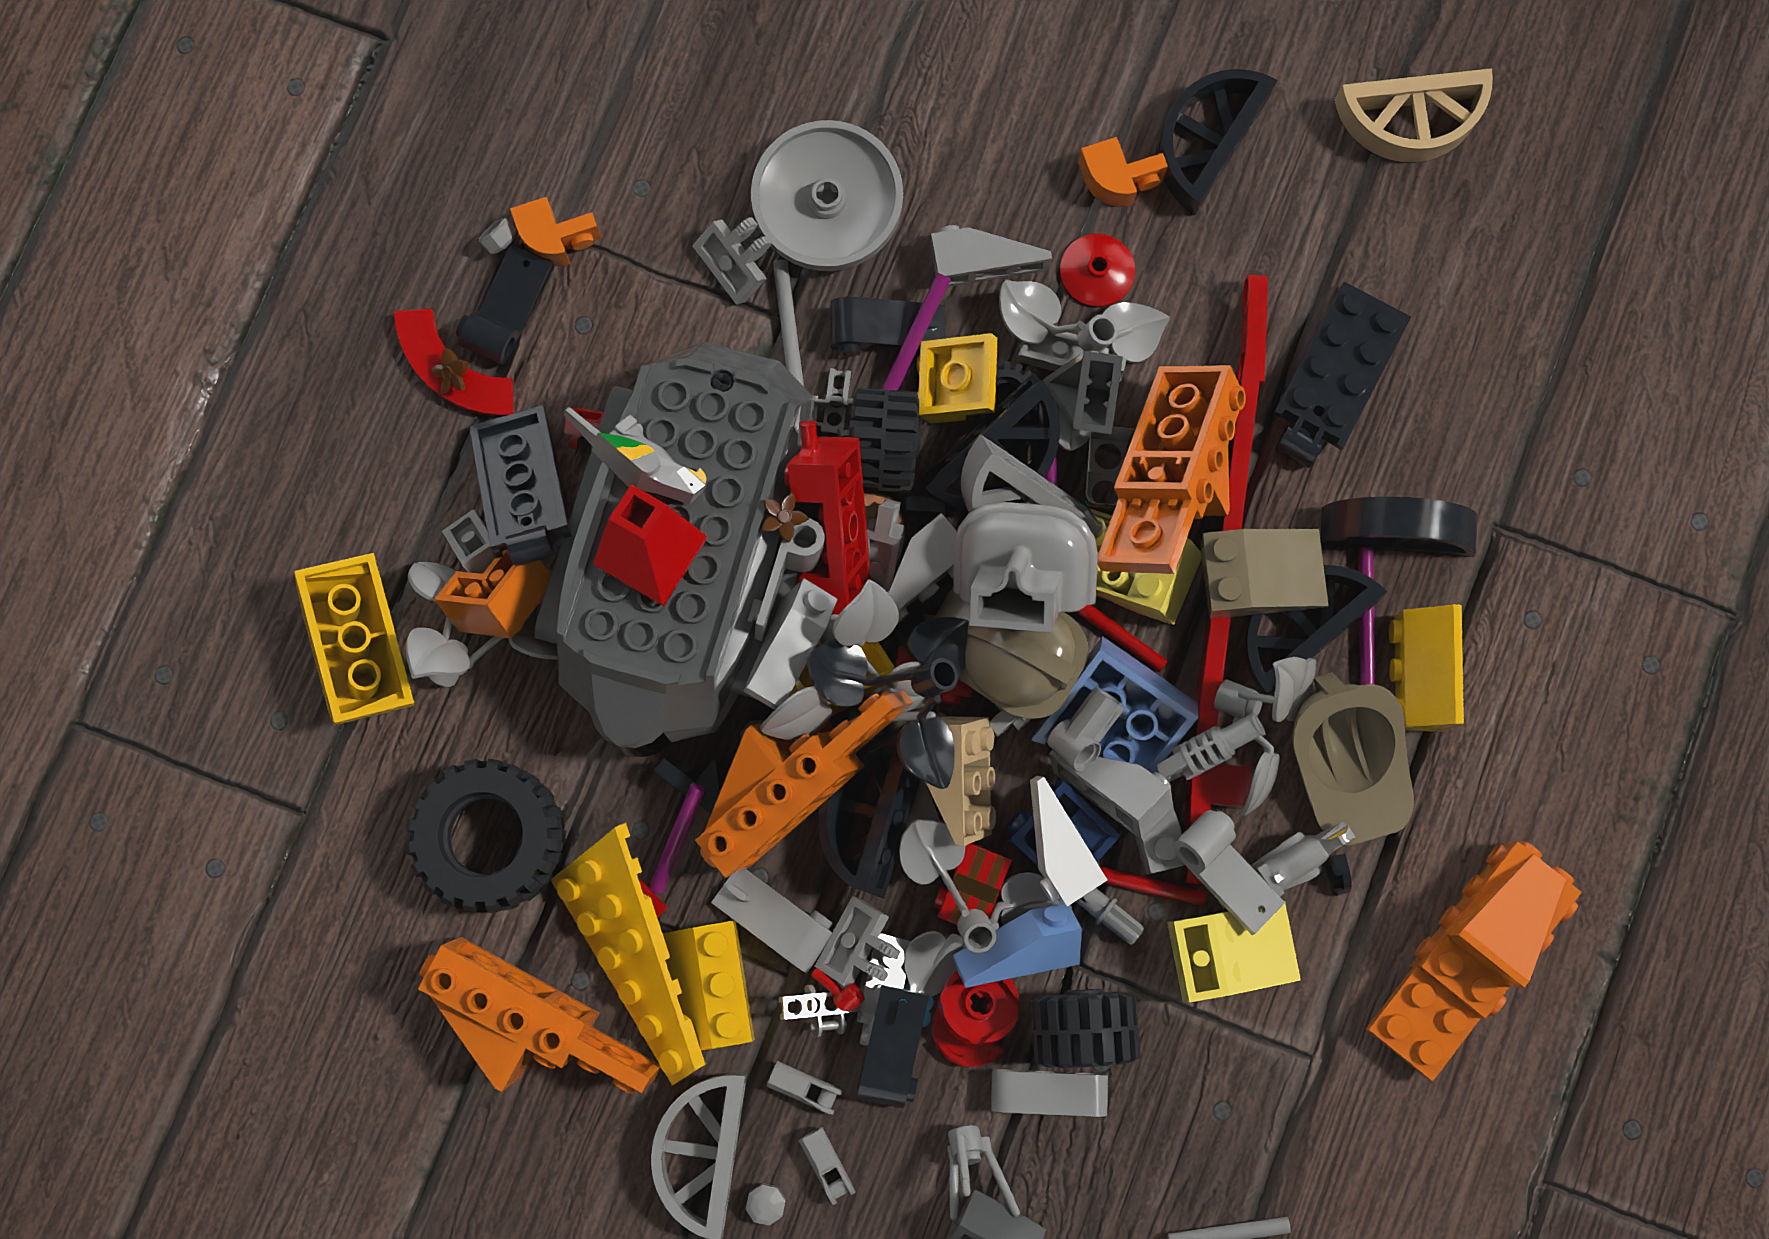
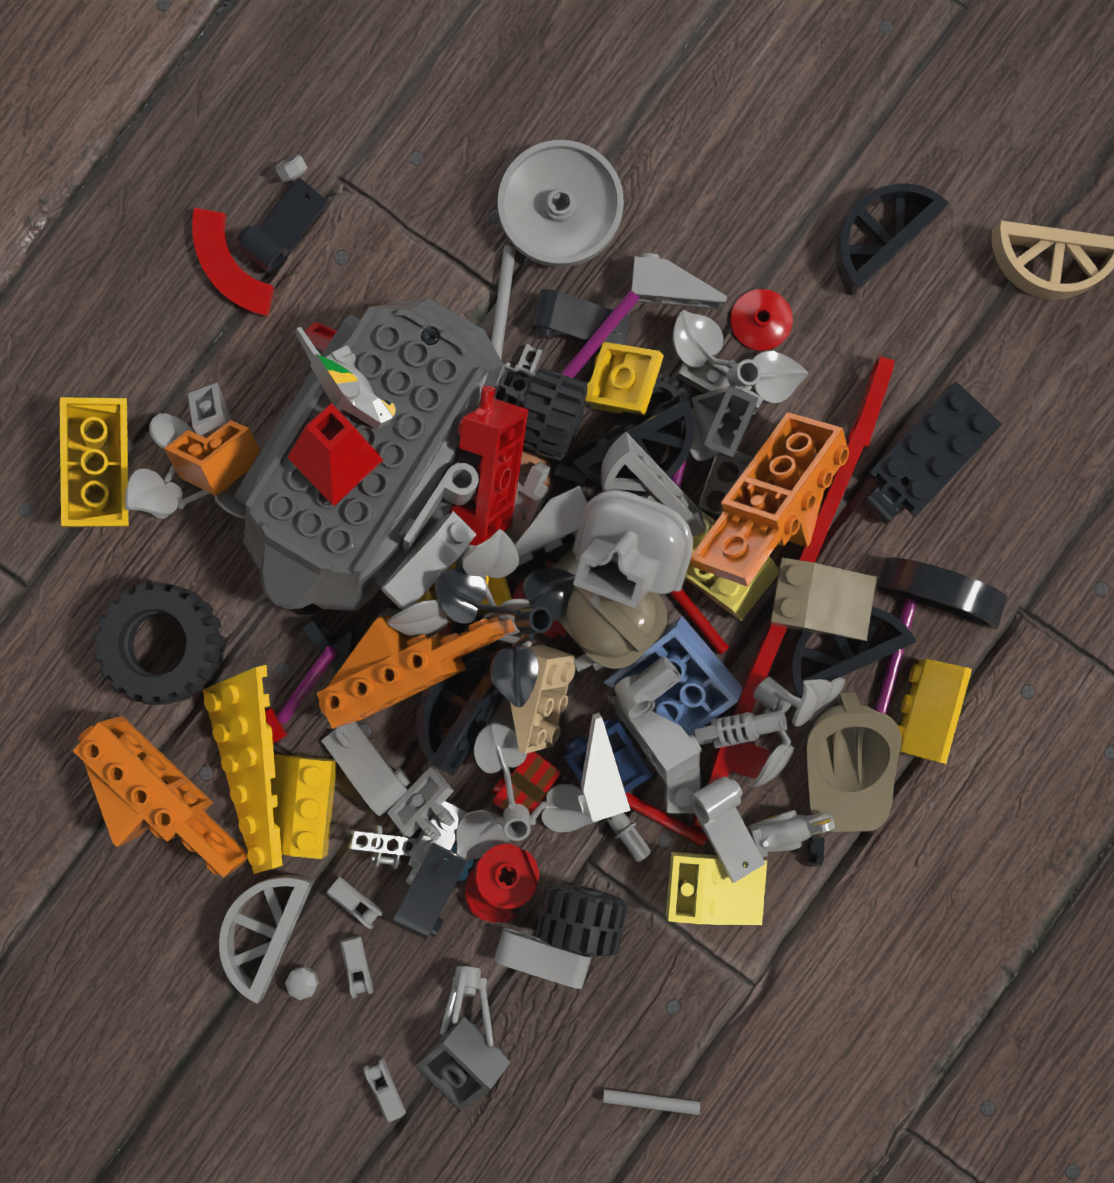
camera: 20 degrees right, 5 degrees up
(451, 371) = (225, 268): reddish brown plant -> none
(520, 485) = (255, 375): black hinge -> none
(547, 238) = (330, 180): orange brick -> none
(730, 261) = (469, 235): light grey hinge -> none
(783, 517) = (448, 459): reddish brown plant -> none
(845, 998) = (401, 845): red hand -> none
(1025, 946) = (553, 842): medium blue slope -> none
(1112, 178) = (794, 250): orange brick -> none
(1475, 956) = (904, 944): orange wedge -> none

